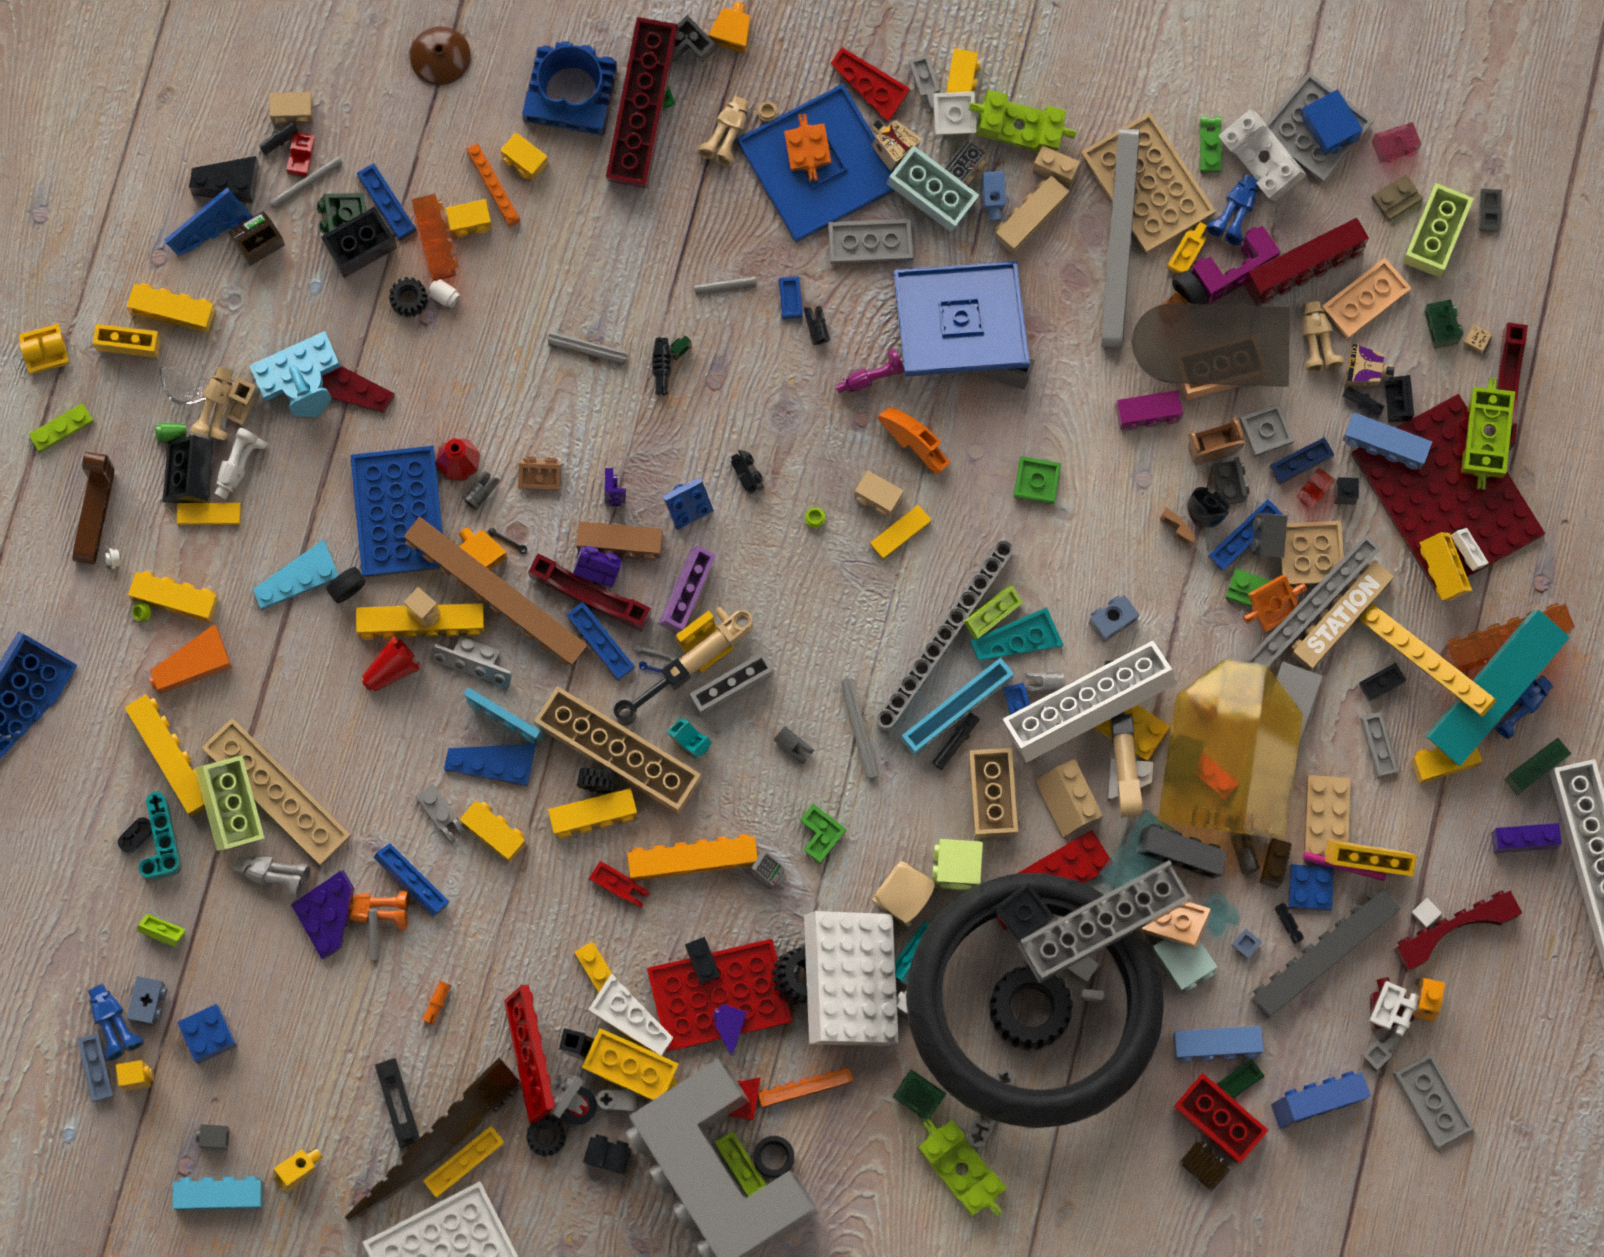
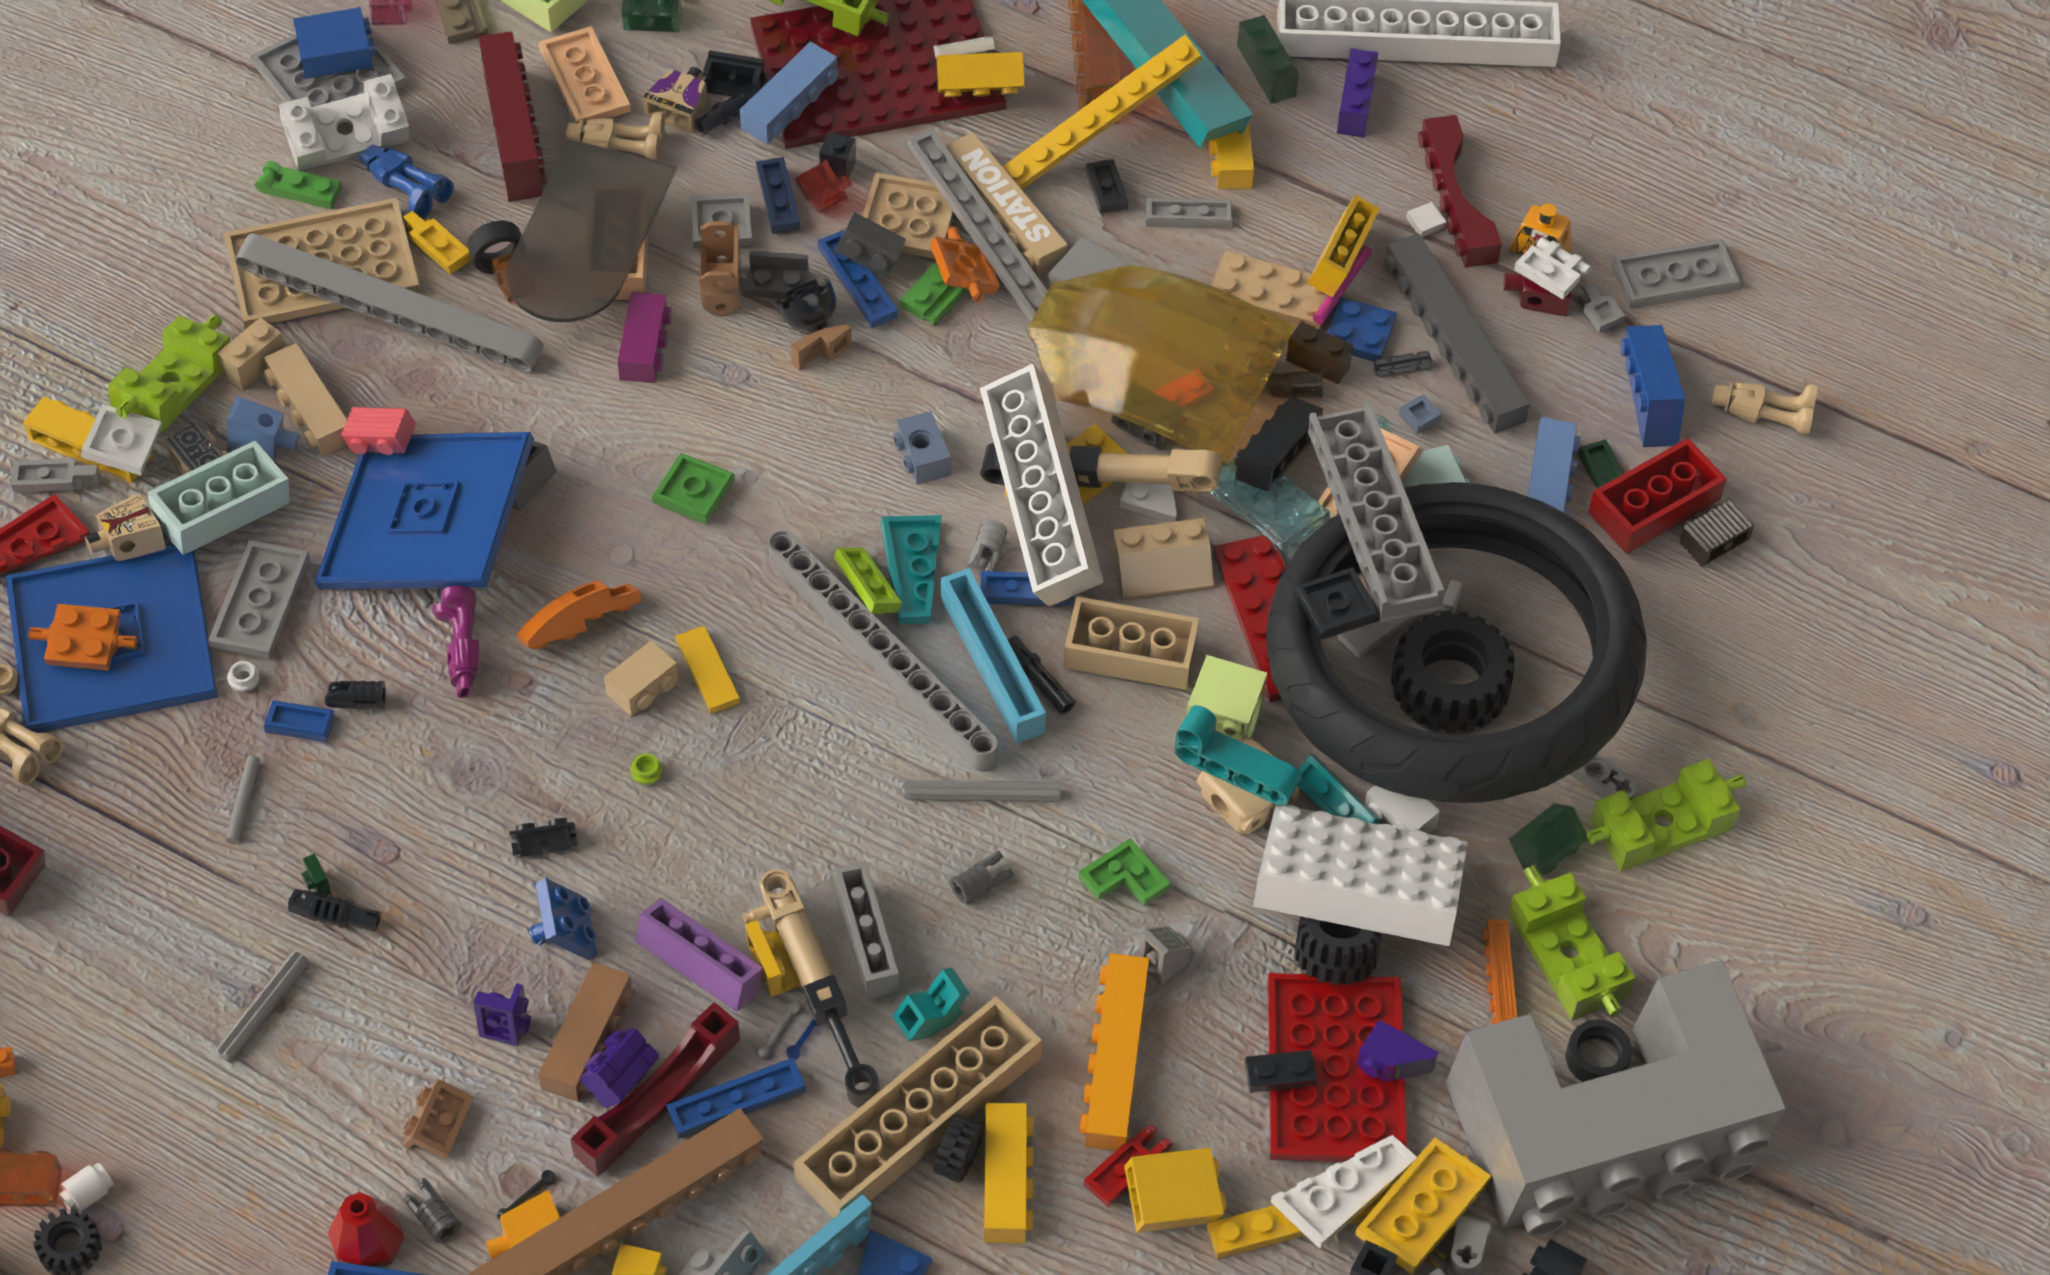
camera: 75 degrees left, 20 degrees down
(604, 915) = (1174, 1189): none -> yellow brick
(811, 247) = (240, 670): none -> white plate
(862, 1108) = (1553, 918): none -> lime brick
(907, 879) = (1233, 761): none -> teal beam
(1014, 267) = (378, 430): none -> coral brick
(1257, 248) = (478, 165): magenta plate -> none
(1329, 1169) = (1755, 402): none -> tan piece

